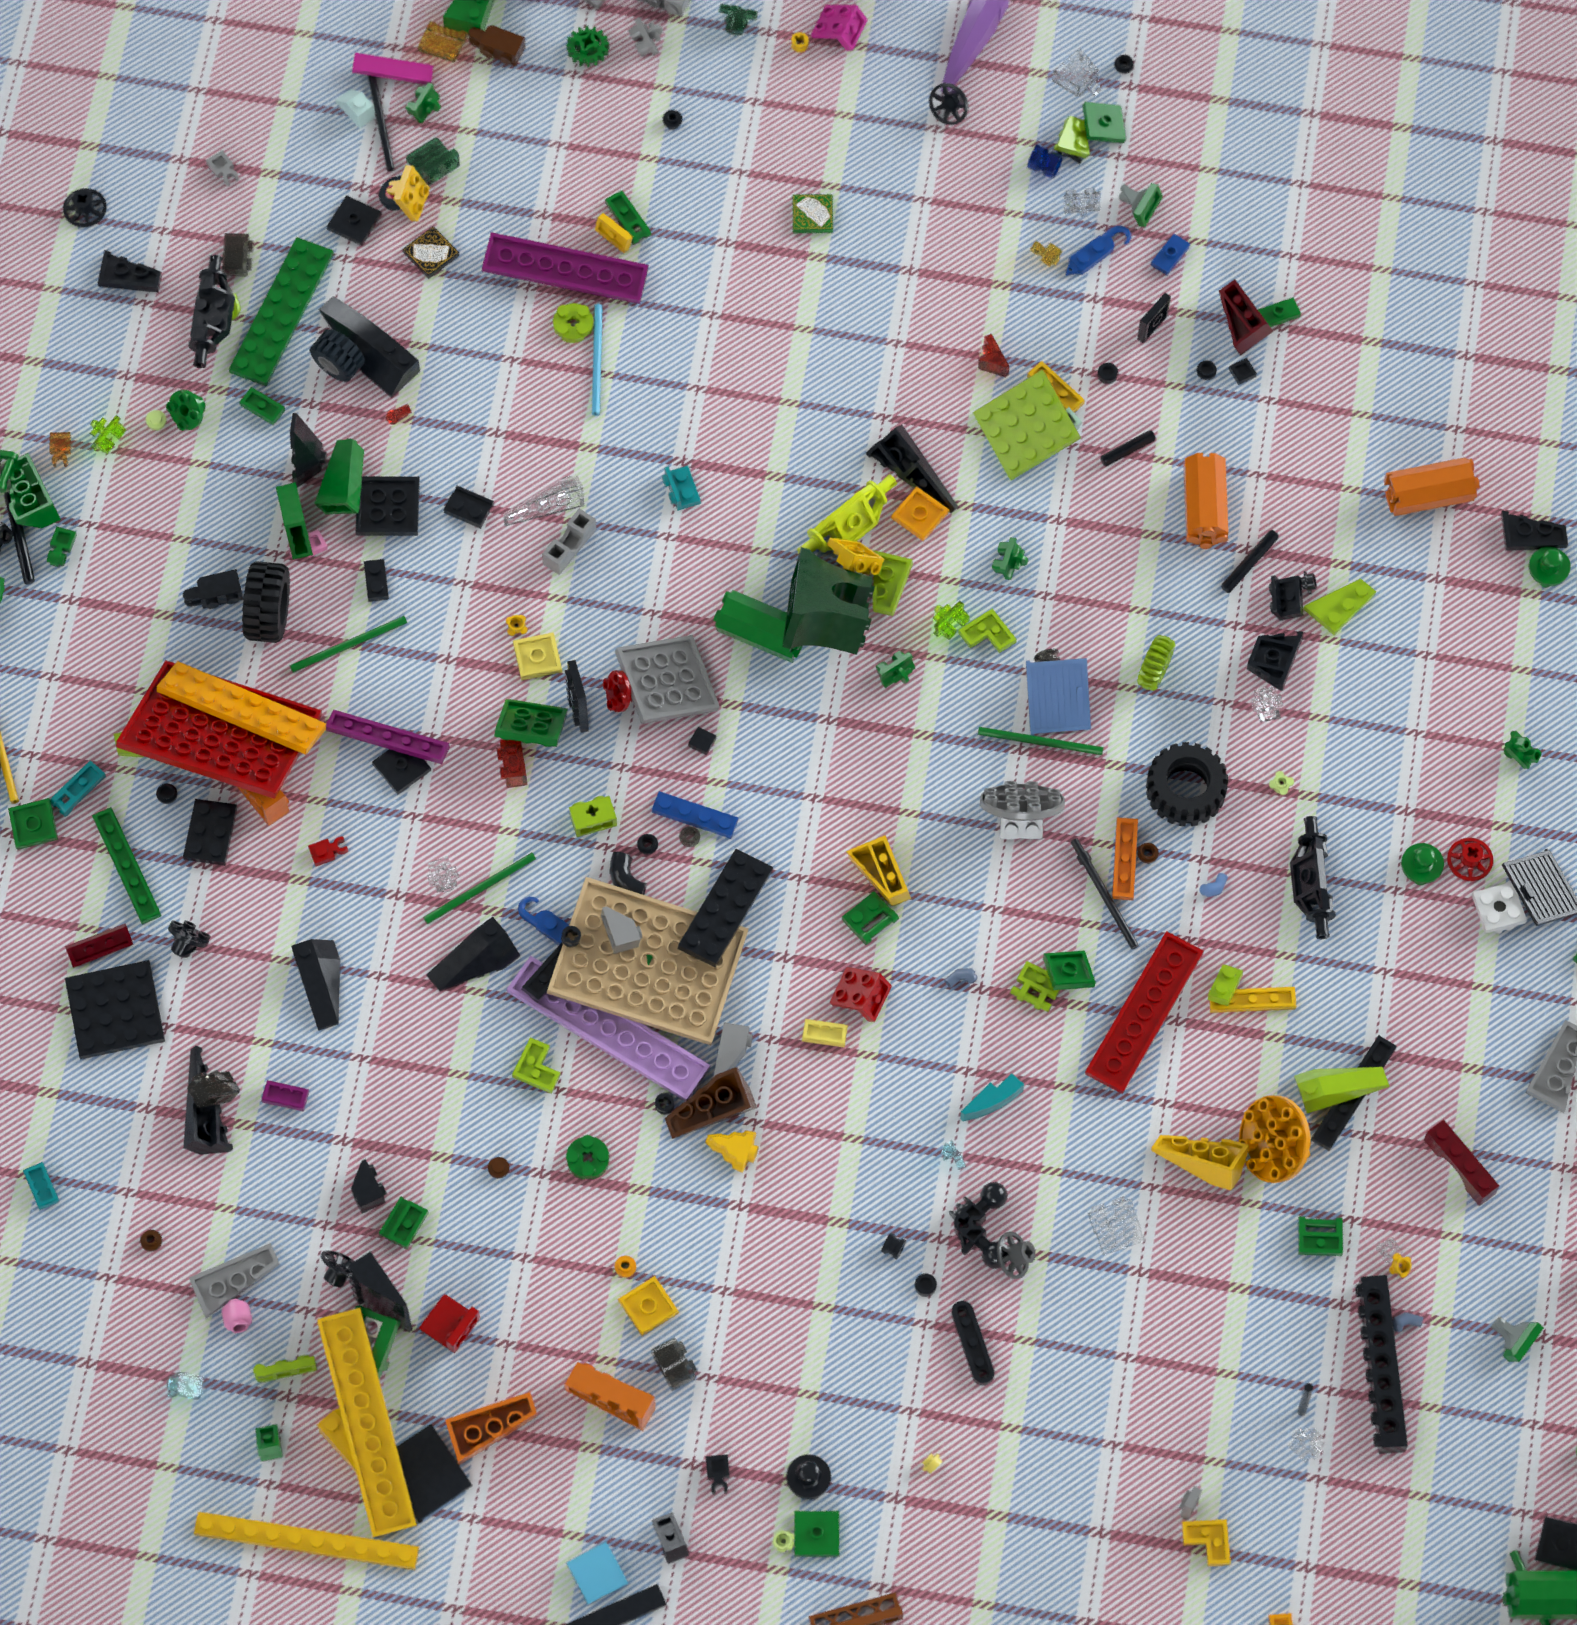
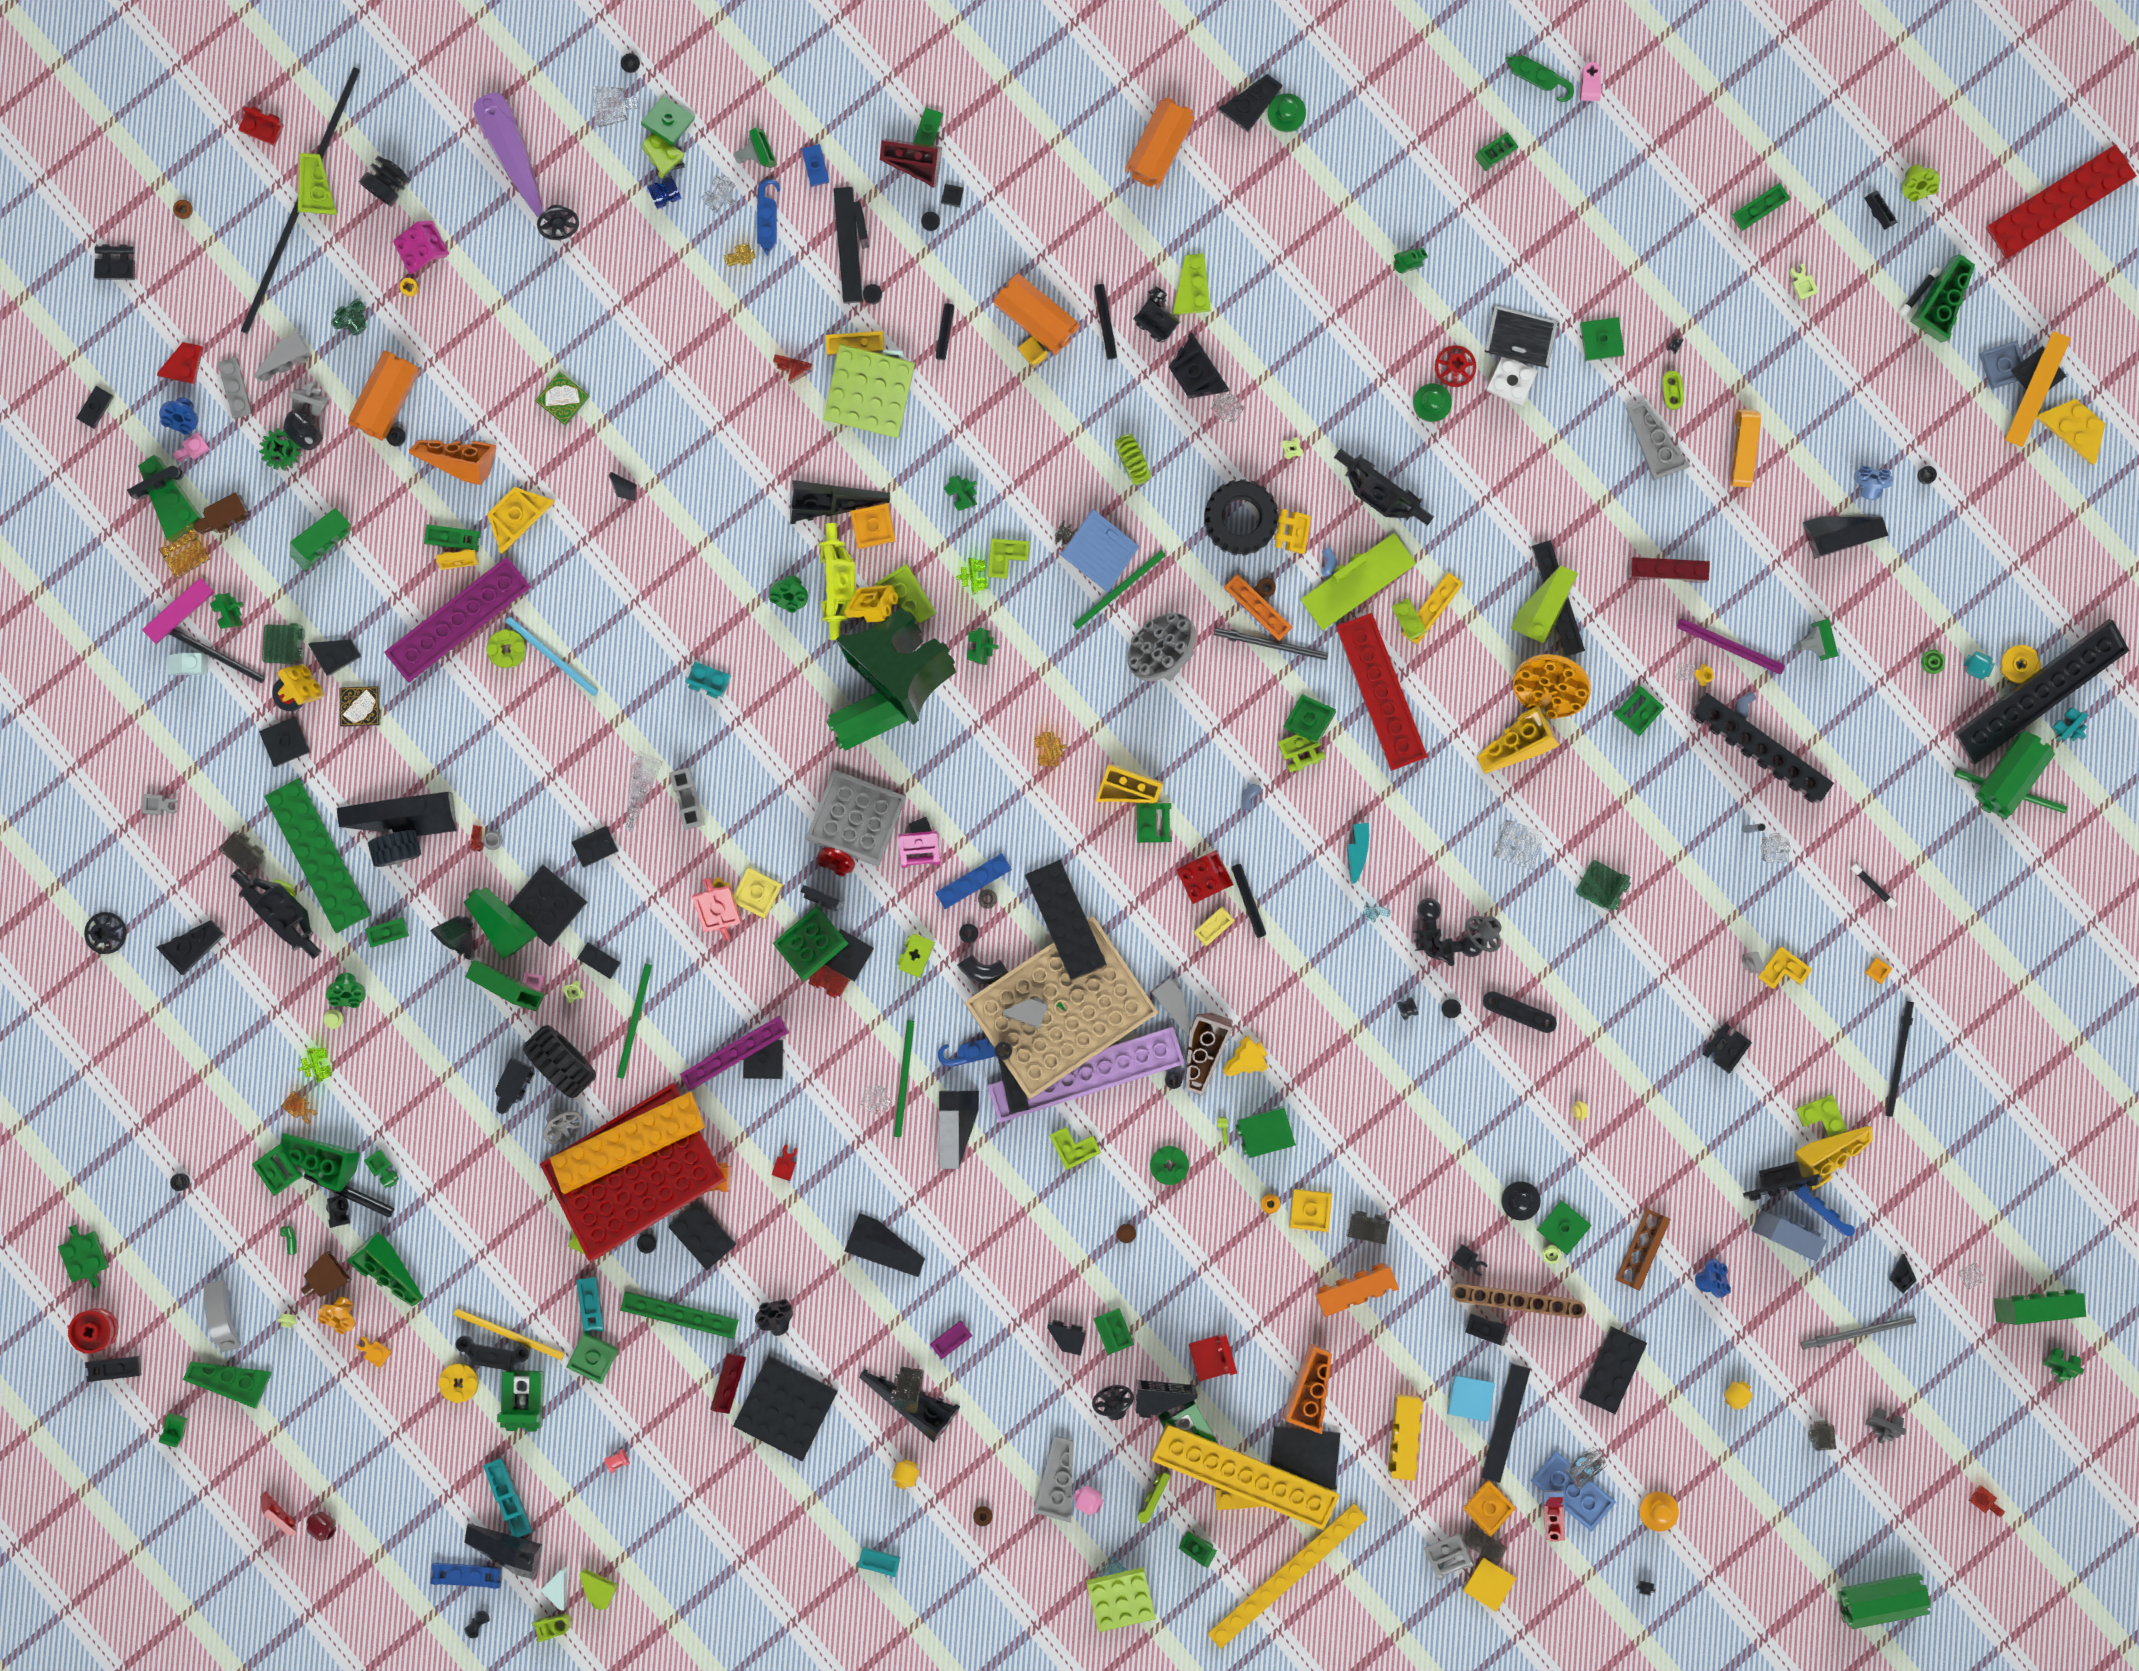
camera: 50 degrees left, 20 degrees up
(136, 1147) = (905, 1474): none -> yellow head
(170, 1409) = (1121, 1599): none -> lime plate
(213, 649) = (559, 1122): none -> light grey wheel
(333, 574) = (578, 992): none -> yellowish green plate
(407, 427) = (492, 840): none -> light grey plate
(457, 204) = (334, 654): none -> black wing
(497, 632) = (716, 908): none -> coral plate
(514, 1540) = (1404, 1437): none -> yellow wedge
(540, 123) = (319, 539): none -> green wedge
(546, 765) = (851, 958): none -> black plate
(617, 48) = (302, 429): none -> black piece
(662, 1174) = (1222, 1122): none -> lime hand
(685, 1210) = (1265, 1132): none -> green slope
(687, 249) = (515, 515): none -> yellow wing
(689, 745) = (919, 843): none -> plate
(694, 177) = (464, 461): none -> orange wedge
(697, 83) = (383, 395): none -> orange brick
(717, 1532) = (1526, 1305): none -> medium nougat beam
(782, 307) = (622, 487): none -> black piece
(806, 490) = (789, 594): none -> green plate
(860, 788) = (1052, 747): none -> clear yellow hips
(871, 1045) = (1248, 900): none -> black axle
(1096, 1553) = (1732, 1050): none -> black plate
(1125, 328) = (848, 245): none -> black tile
(1143, 1325) = (1603, 886): none -> clear green bracket
(1173, 525) = (1032, 352): none -> yellow bracket
(1216, 840) = (1297, 532): none -> yellow plate
(1220, 919) = (1357, 581): none -> lime bracket
(1351, 1561) = (1873, 885): none -> black bar
(1445, 1270) = (1730, 646): none -> magenta axle

